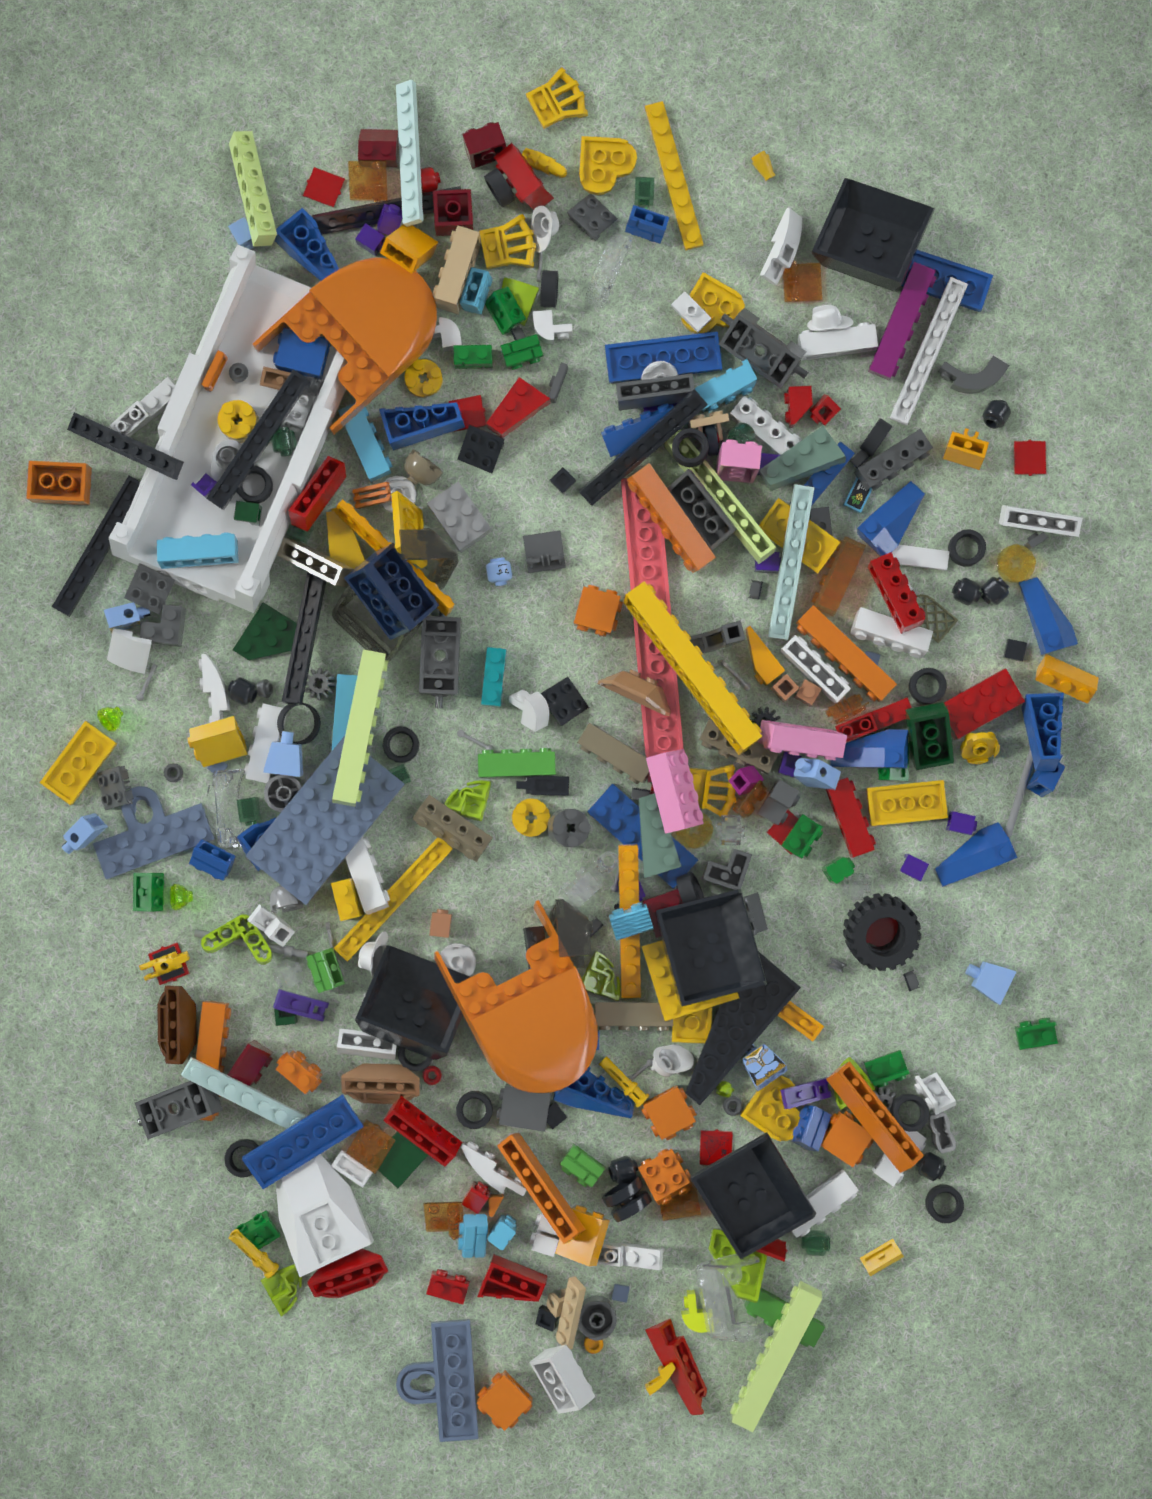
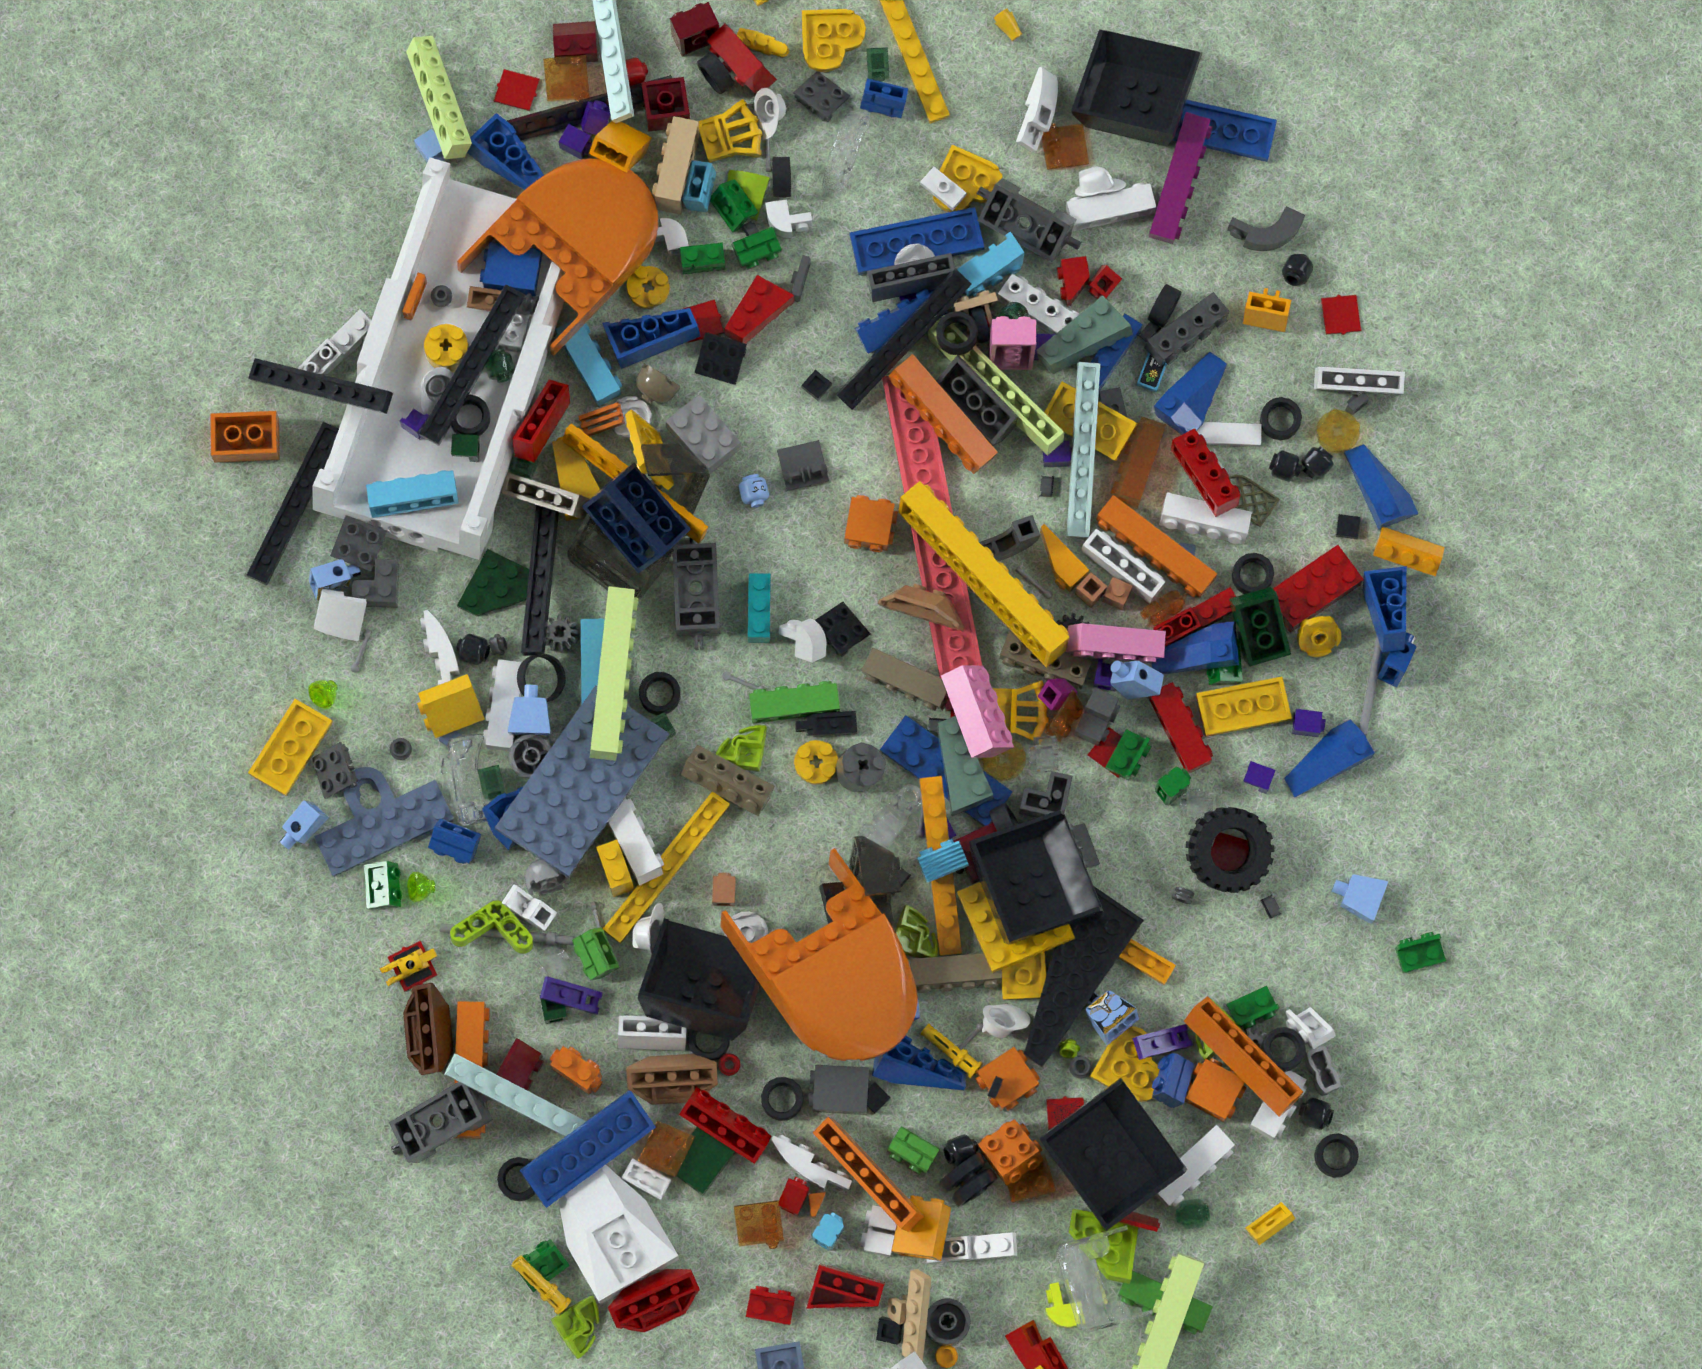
camera: 10 degrees left, 10 degrees down
(474, 1235) = (795, 1239): medium azure brick -> none
(620, 1293) = (972, 1295): sand blue piece -> none
(657, 1123) = (995, 1087): none -> black piece
(928, 351) = (1213, 208): white tile -> none

